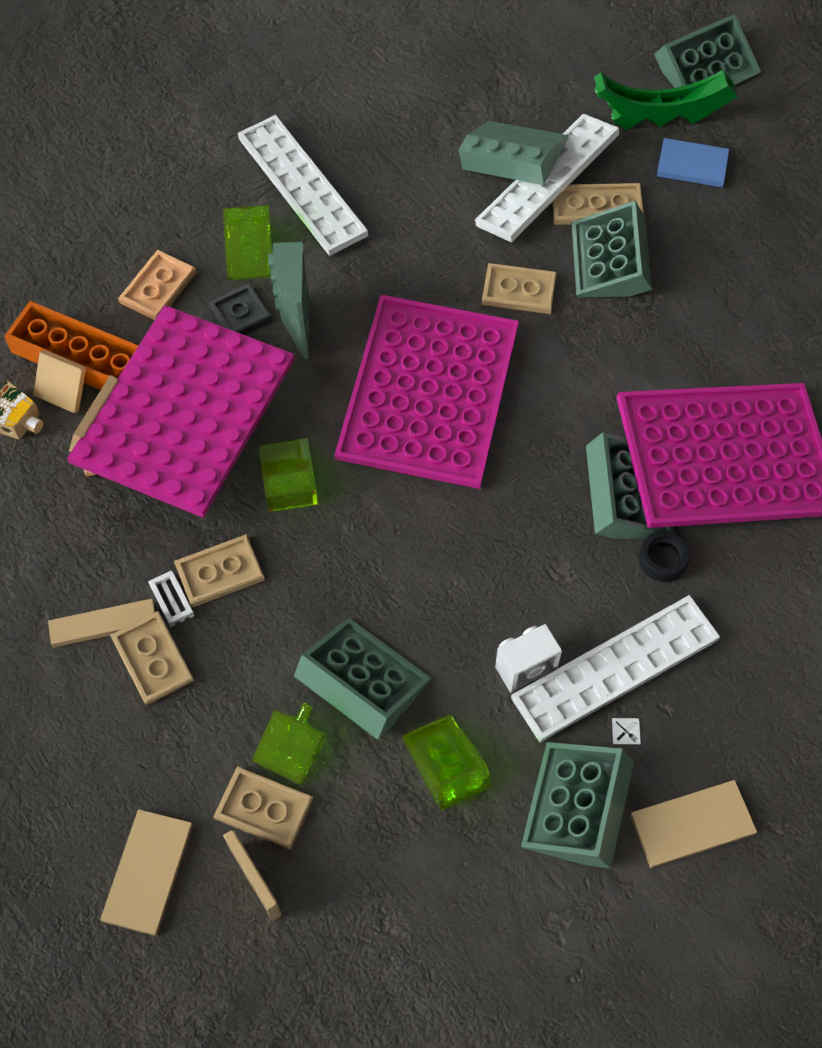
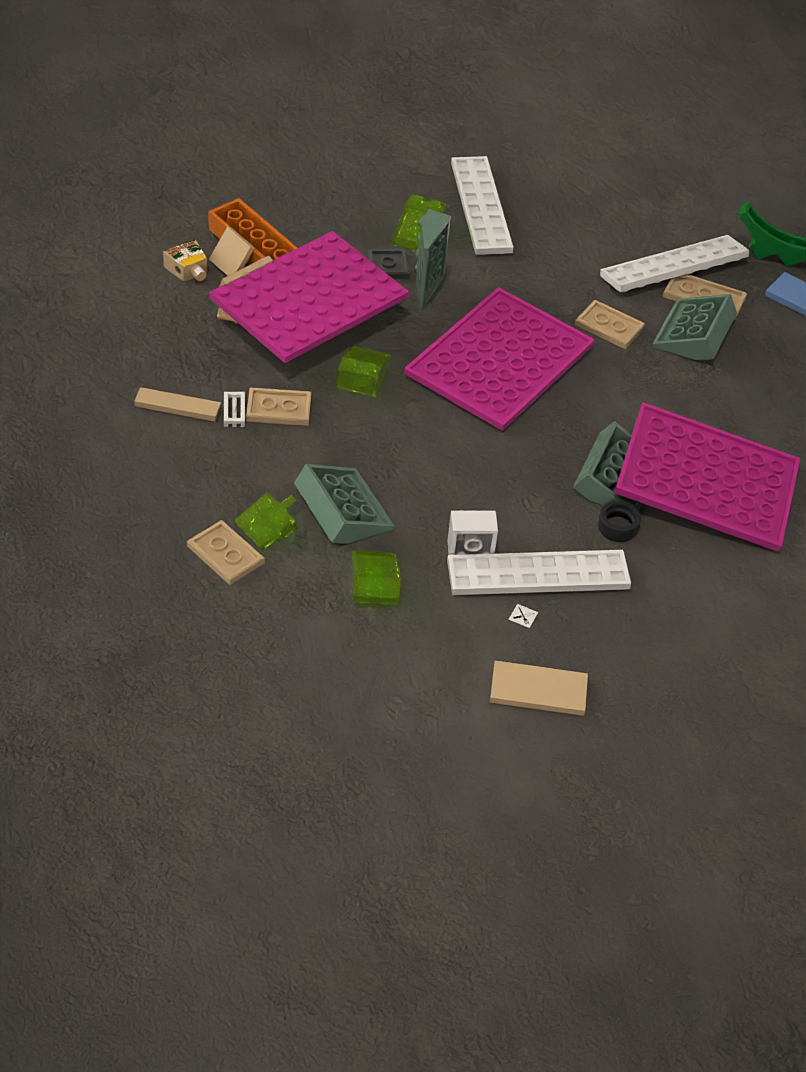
camera: 20 degrees right, 15 degrees down
(146, 872) = (121, 554): tan tile -> none
(152, 658) = (199, 435): tan tile -> none
(157, 284) = (344, 223): light nougat tile -> none
(252, 875) = (193, 578): tan tile -> none
(511, 151) = (653, 237): sand green slope -> none
(579, 803) = (459, 638): sand green slope -> none

